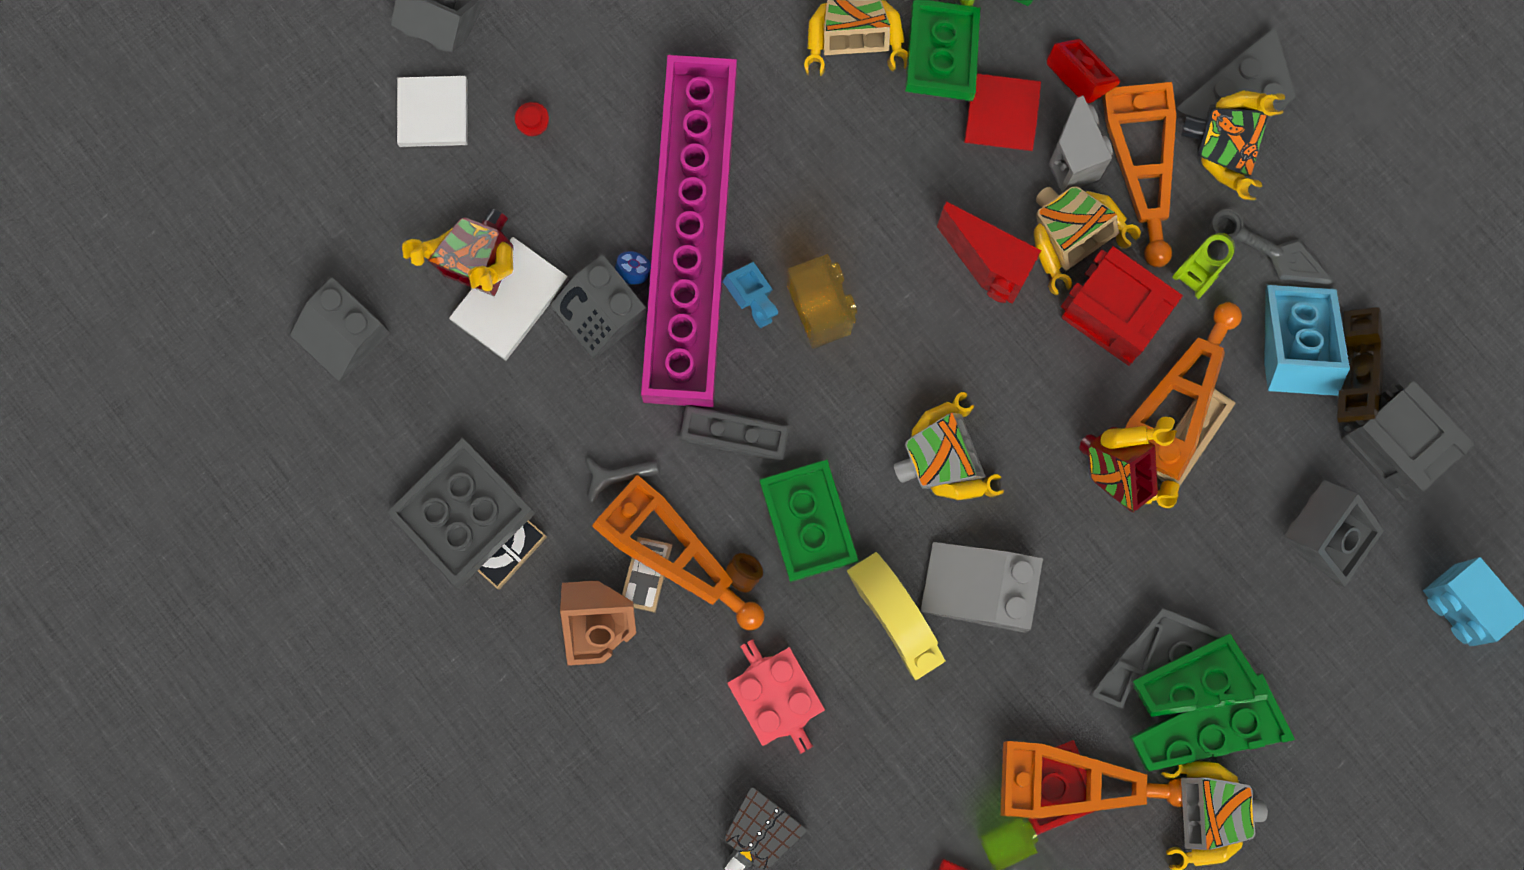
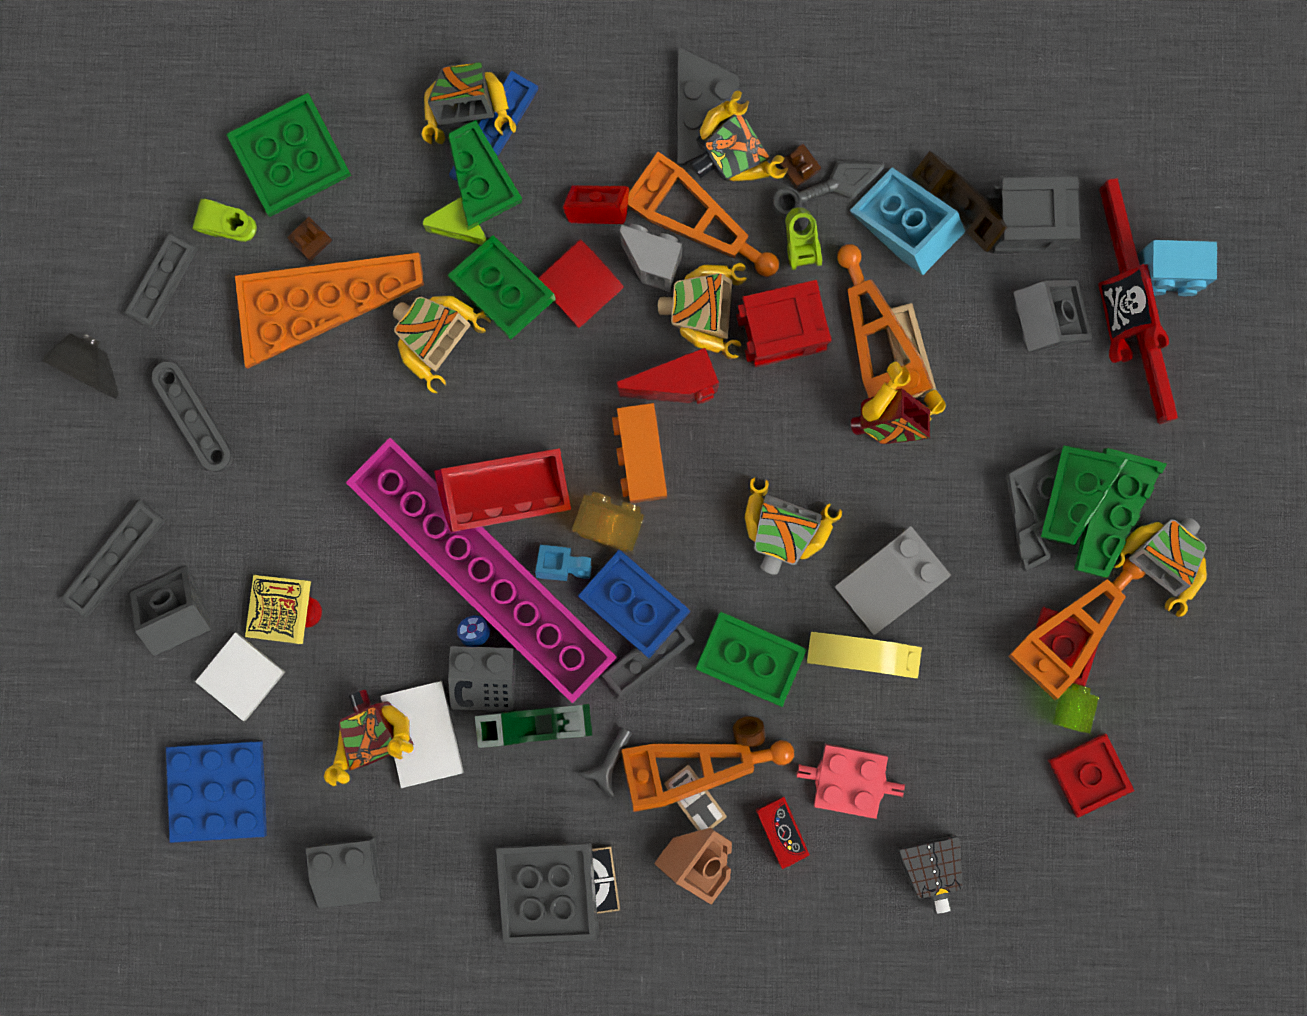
camera: 45 degrees left, 5 degrees up
(319, 171) = (216, 791): none -> blue plate
(514, 93) = (278, 609): none -> light yellow tile
(593, 380) = (533, 725): none -> dark green arch
(681, 674) = (782, 832): none -> slope
(770, 381) = (634, 603): none -> blue plate
(773, 188) = (503, 490): none -> red slope
(903, 280) = (640, 453): none -> orange brick
(1266, 211) = (800, 166): none -> reddish brown tile
(1399, 595) = (1131, 310): none -> flag
(1412, 598) = (1127, 259): none -> red tile

